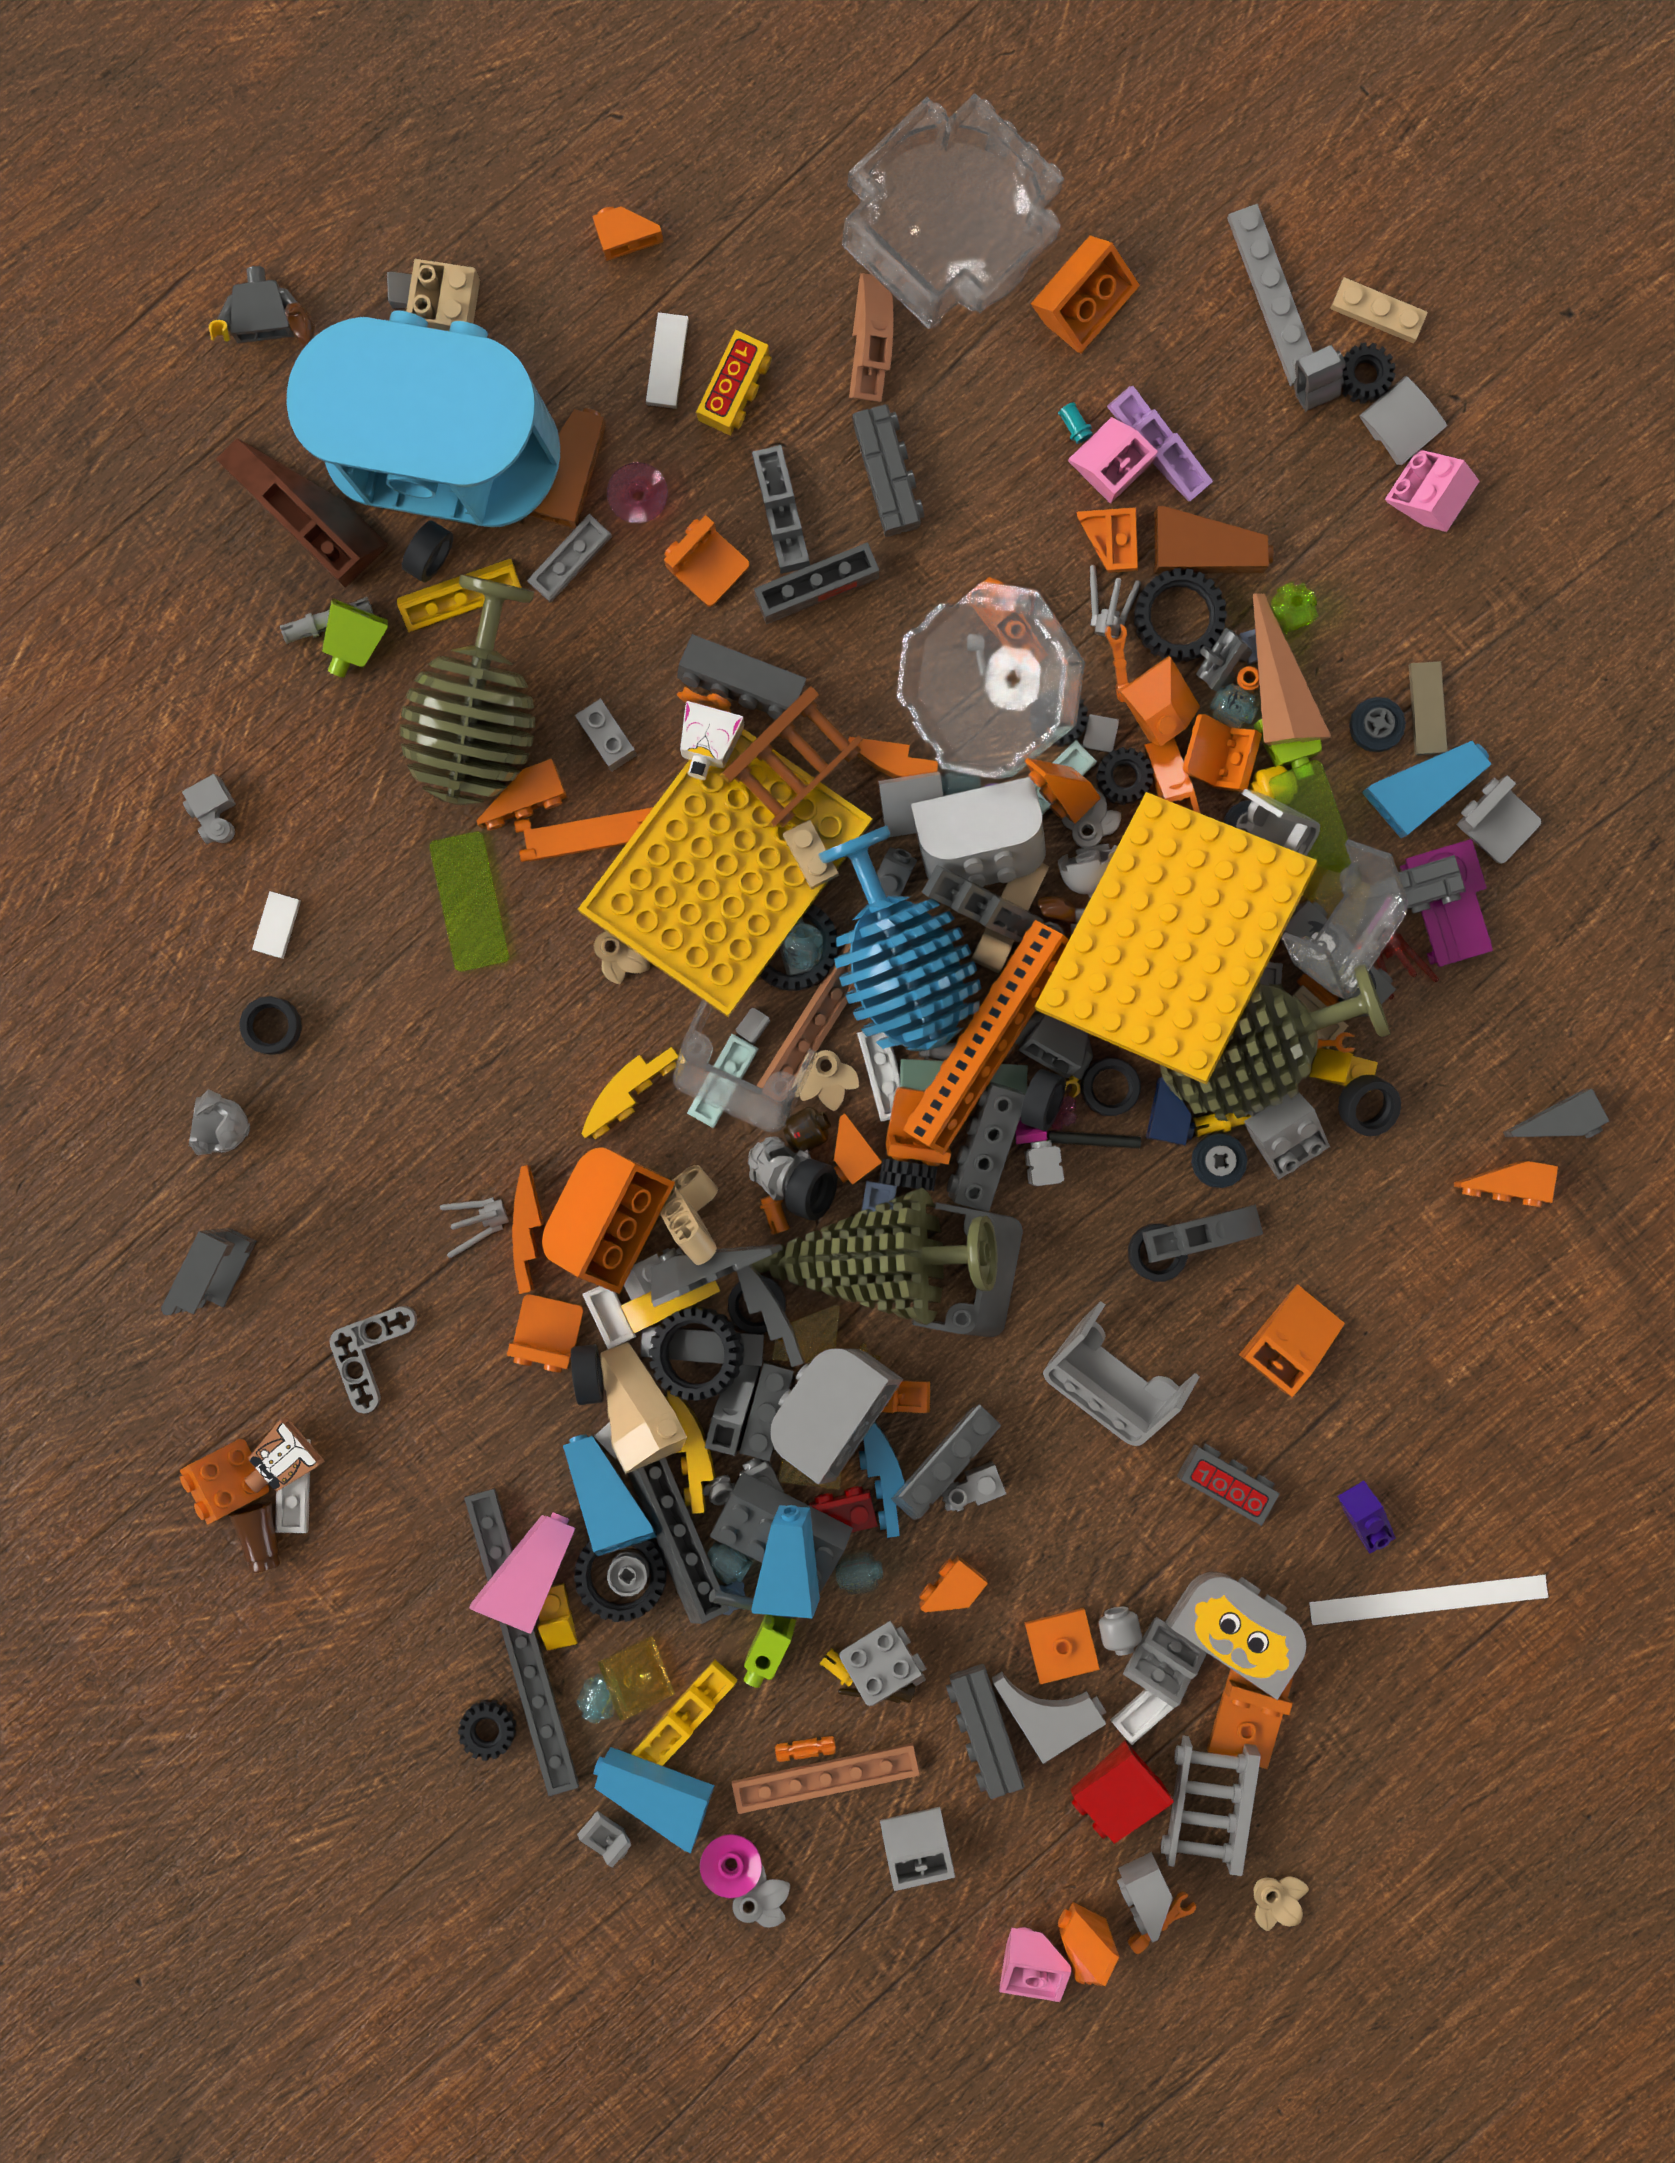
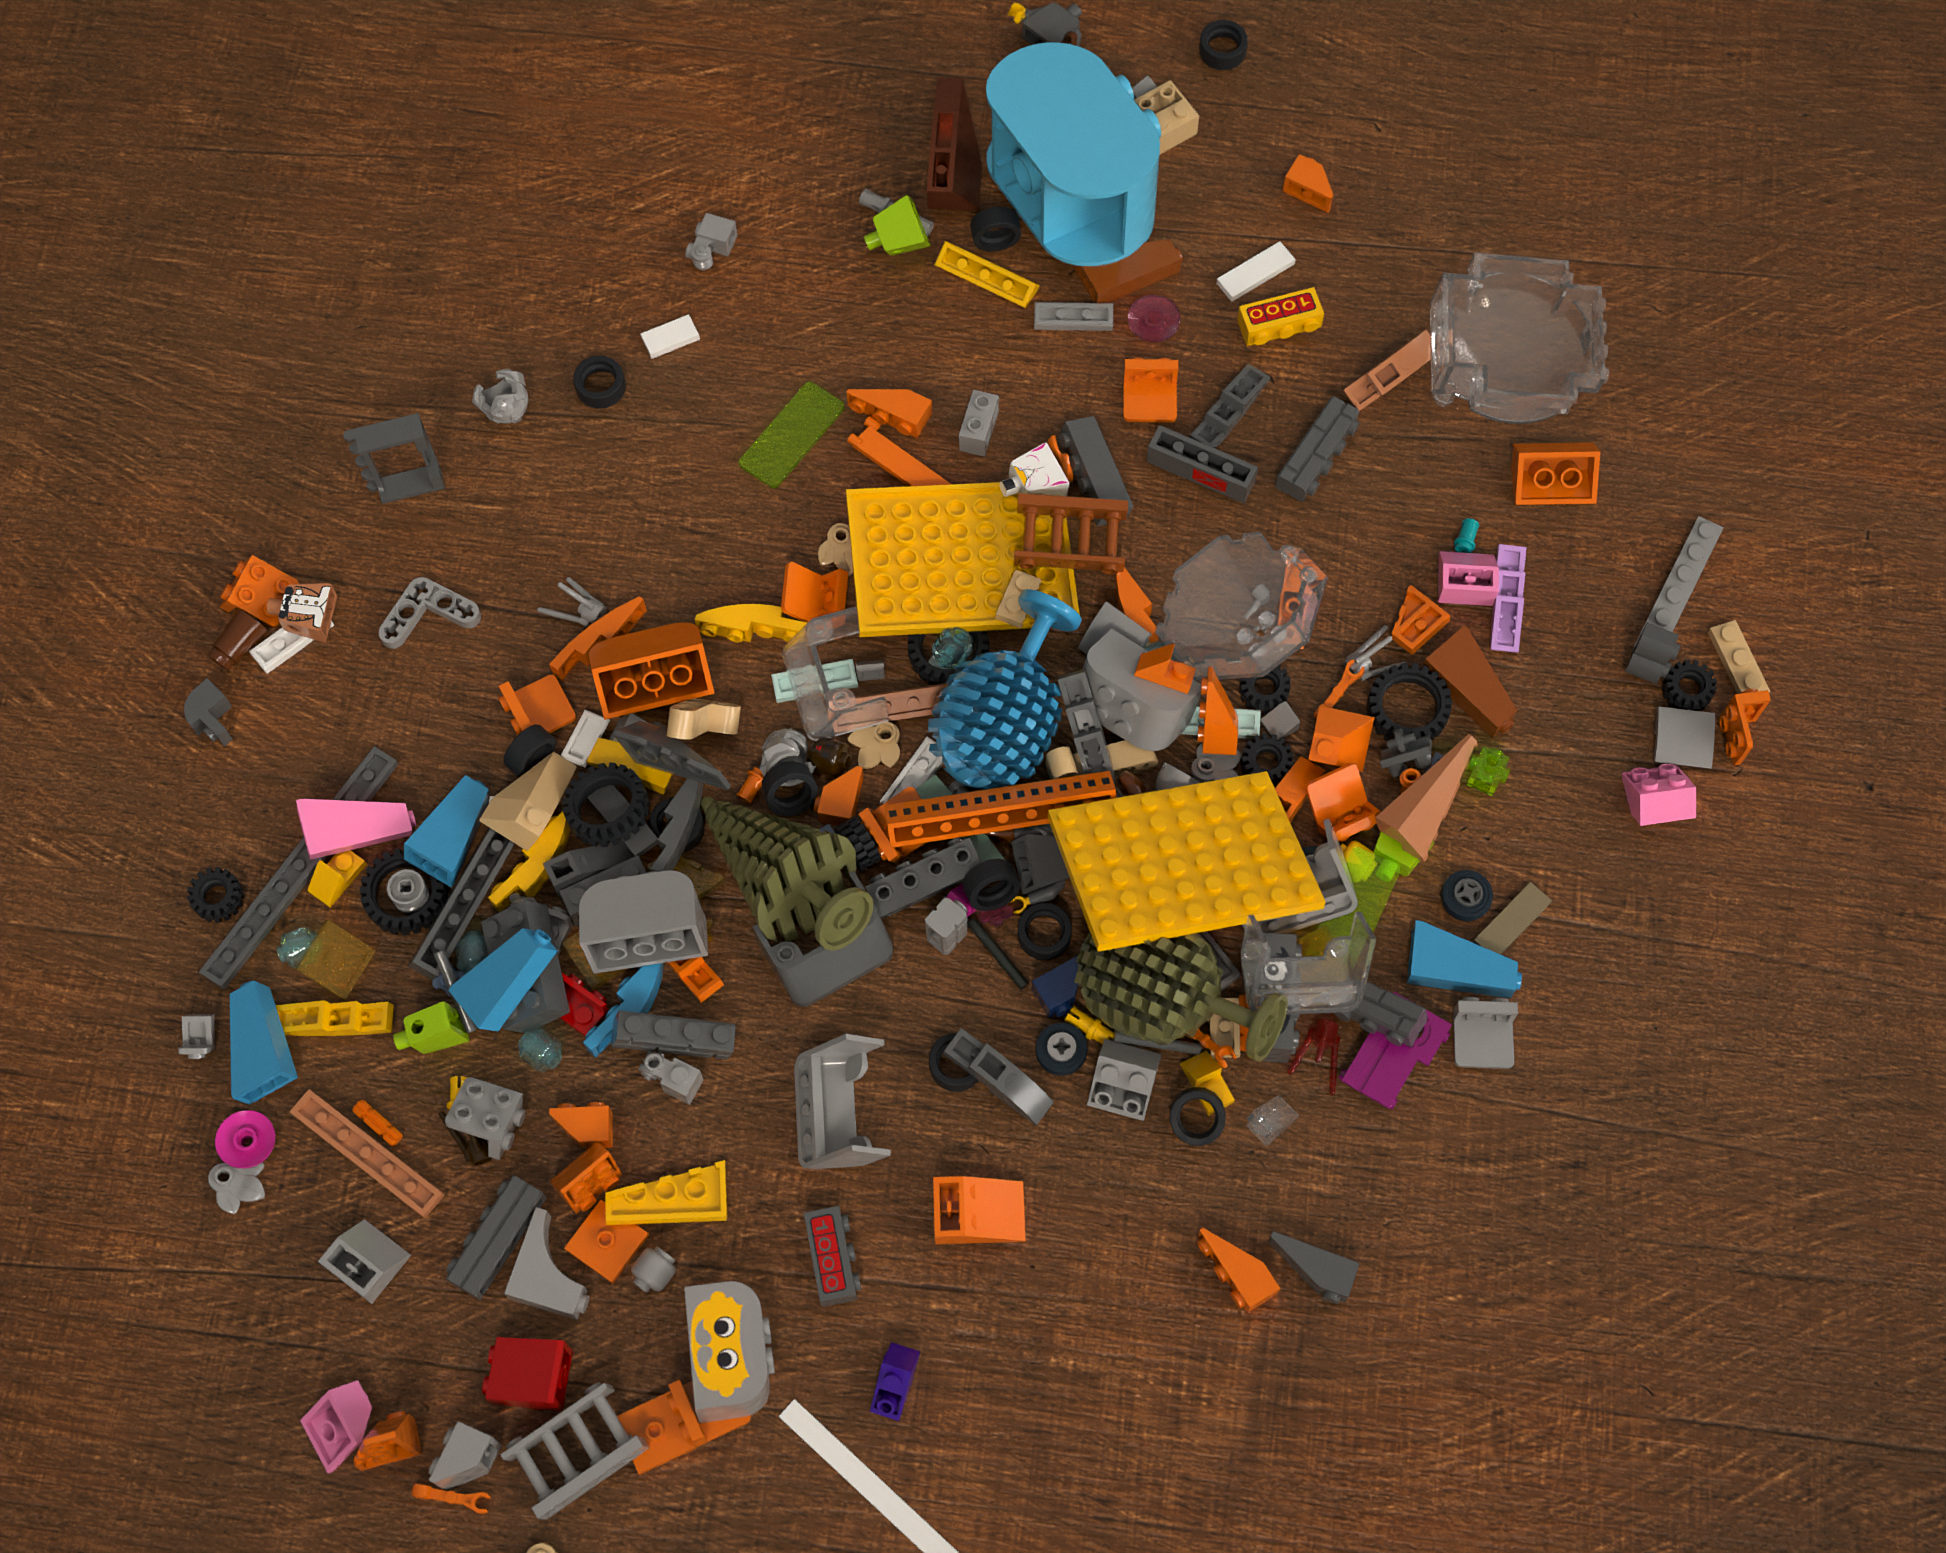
camera: 50 degrees right, 20 degrees down
(300, 1613) = (204, 709): none -> dark grey brick
(406, 150) = (1219, 60): none -> black tyre
(458, 735) = (918, 320): olive plant -> none
(649, 1017) = (811, 594): none -> orange bracket
(895, 871) = (1059, 664): dark grey bracket -> none
(991, 799) = (1158, 668): none -> orange slope
(1002, 1626) = (587, 1178): none -> orange slope
(1077, 1565) = (671, 1199): none -> yellow wing
(1140, 1715) = (606, 1345): white tile -> none
(1164, 1663) = (656, 1326): light grey slope -> none
(1233, 706) = (1382, 787): clear light blue head -> none
(1420, 1048) = (1271, 1119): none -> clear slope
(1435, 371) = (1735, 719): none -> orange bracket

